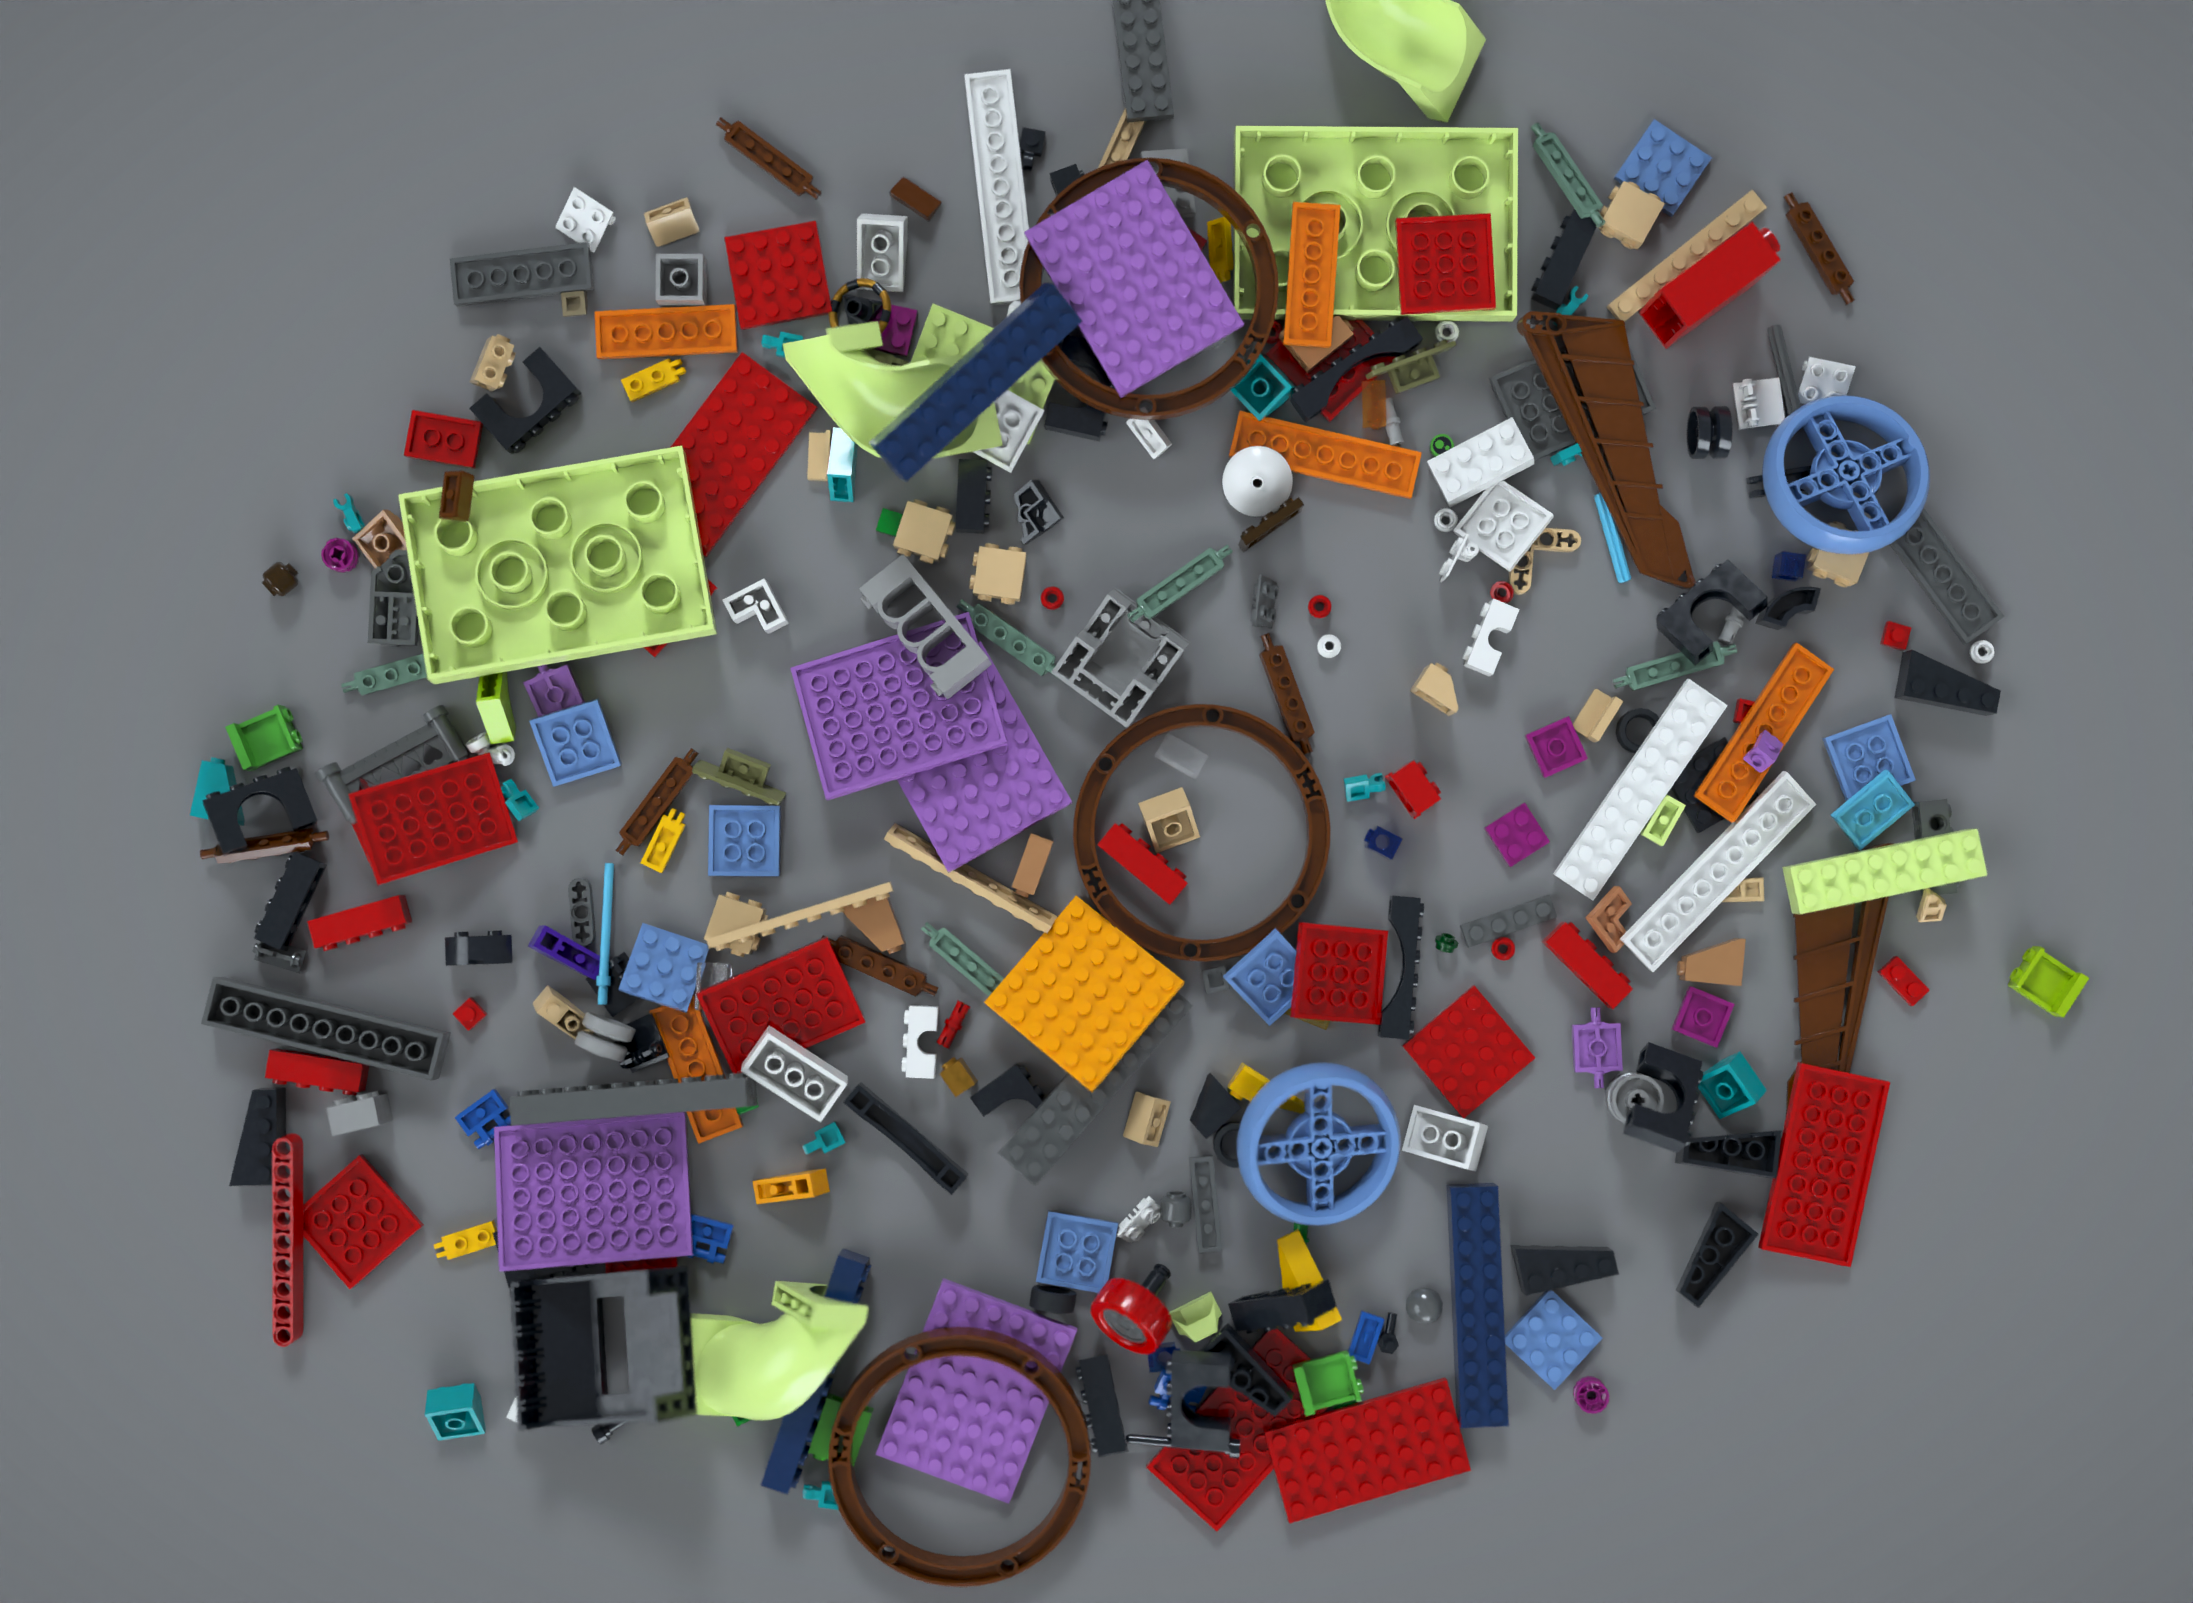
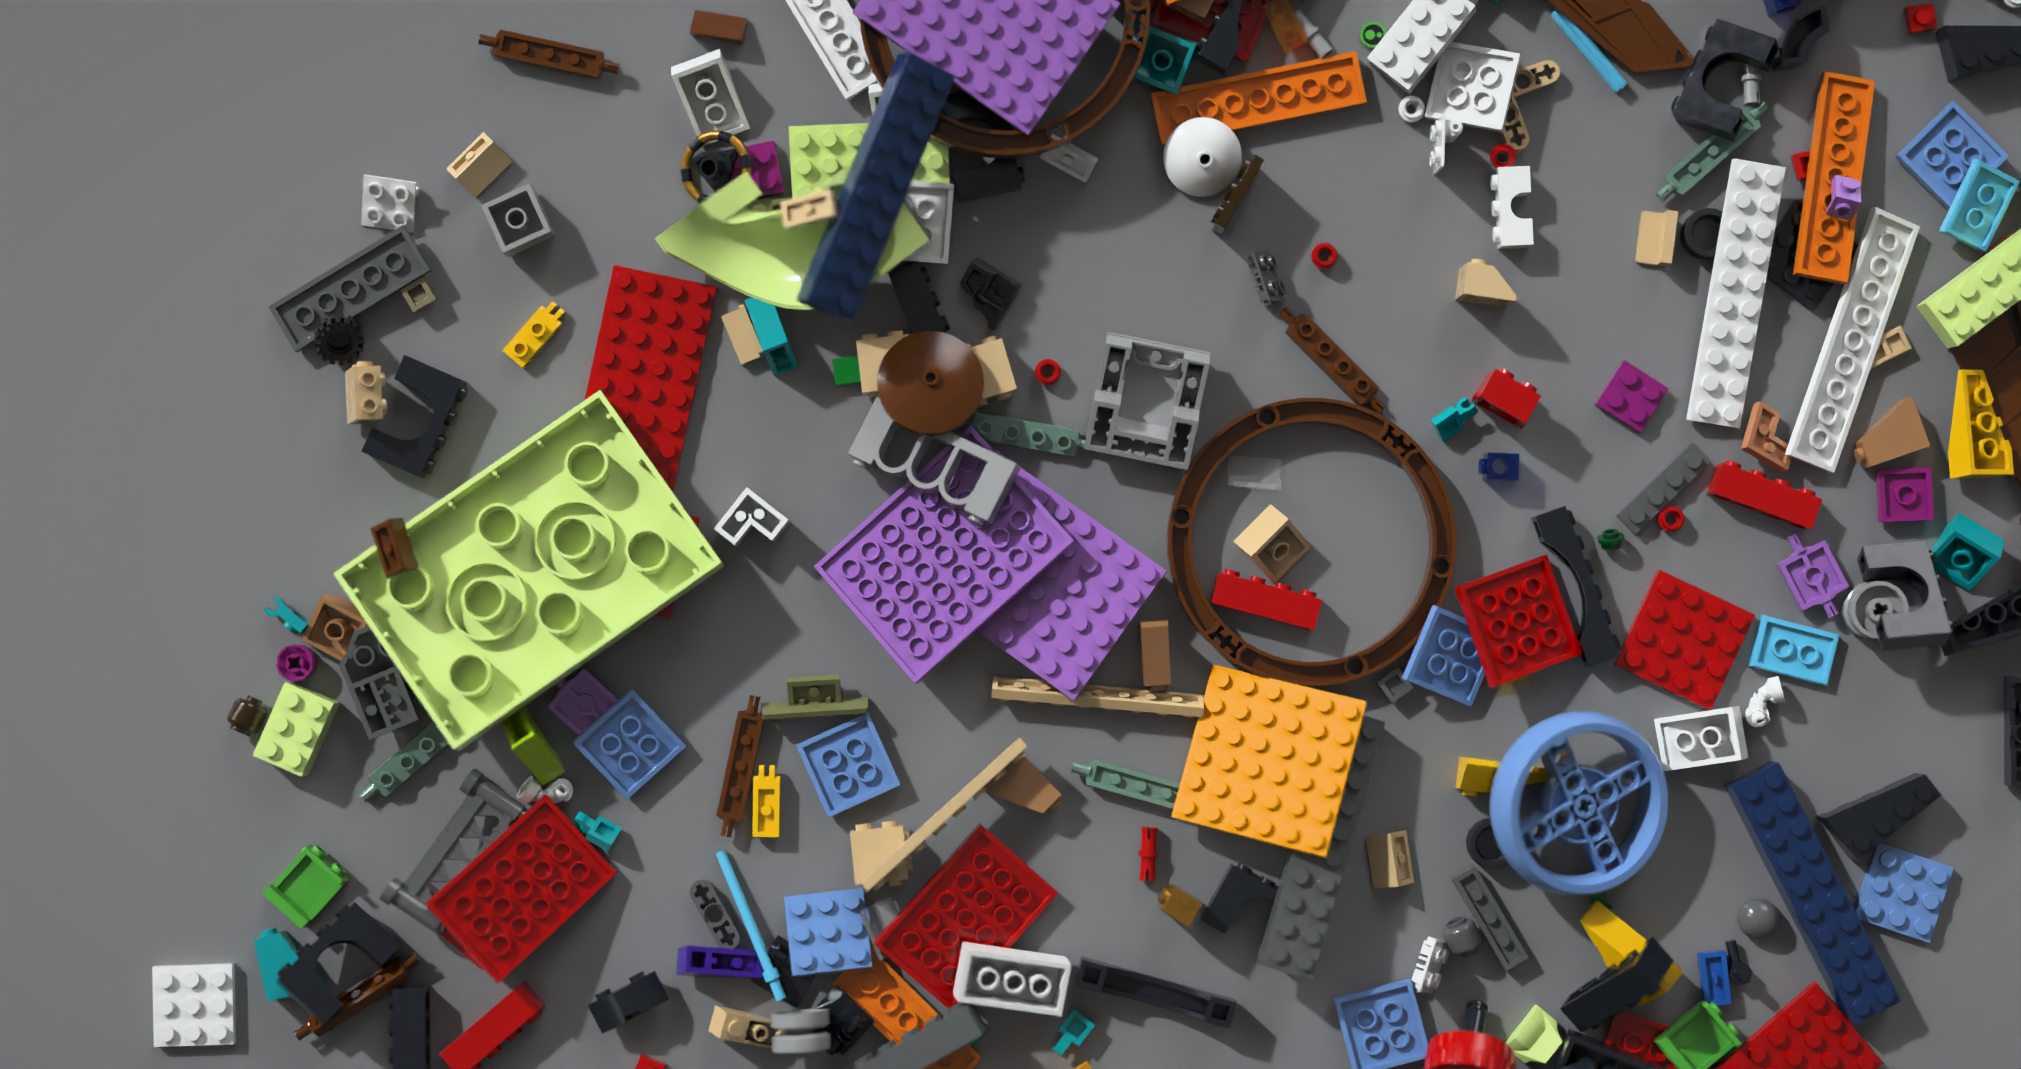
camera: 30 degrees left, 0 degrees up
(131, 792) = (194, 1005): none -> white plate
(315, 607) = (296, 729): none -> yellowish green brick
(443, 439) = (347, 495): red plate -> none
(484, 319) = (334, 325): none -> black tyre
(666, 331) = (526, 280): orange plate -> none
(777, 343) = (647, 239): teal plate -> none
(778, 275) = (614, 169): red plate -> none
(881, 967) = (1048, 828): reddish brown plate -> none
(912, 374) = (809, 209): none -> tan plate
(919, 1063) = (1131, 909): white arch -> none
(948, 582) = (924, 405): none -> reddish brown dish
(1179, 583) = (1172, 297): sand green plate -> none
(1212, 1107) = (1452, 816): black slope -> none
(1329, 653) = (1352, 300): white plate -> none
(1501, 1137) = (1757, 711): none -> white arm
(1554, 1101) = (1794, 650): none -> medium azure tile
(1556, 747) = (1630, 289): magenta plate -> none
(1591, 1404) = (1970, 941): magenta wheel -> none
(1663, 820) = (1773, 314): yellowish green slope -> none
(1783, 995) = (1976, 438): none -> yellow wedge

